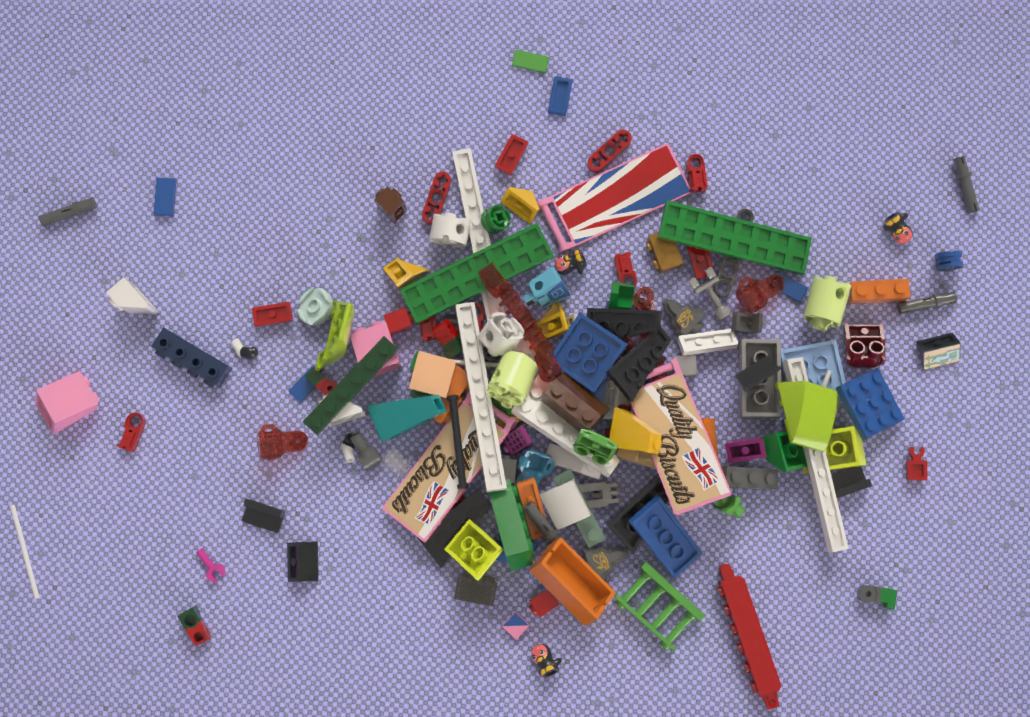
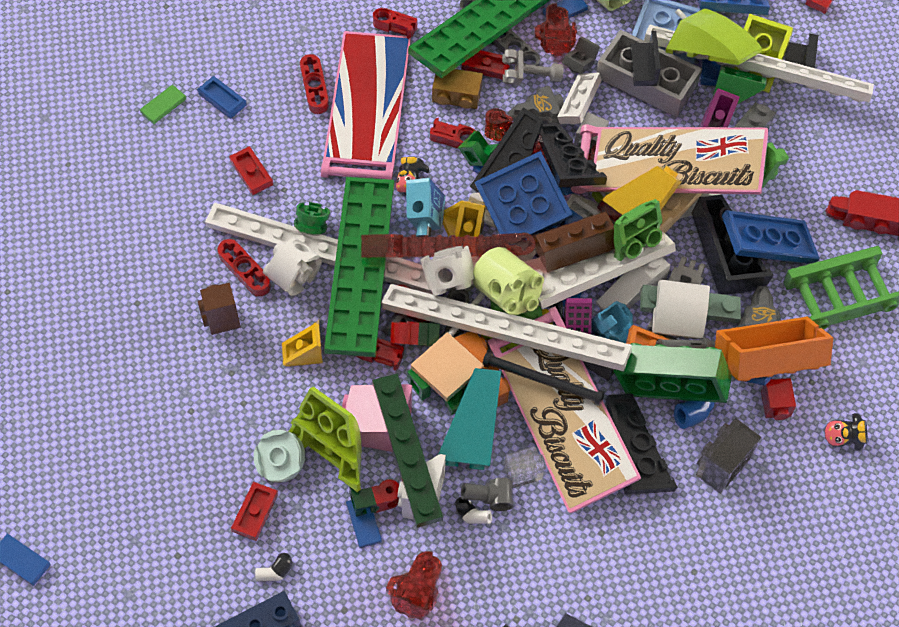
camera: 65 degrees left, 20 degrees down
(399, 321) = (357, 372): red brick -> none
(474, 549) = (682, 426): neon yellow slope -> none
(515, 625) = (788, 445): tile -> none
(521, 203) = (312, 189): yellow slope -> none

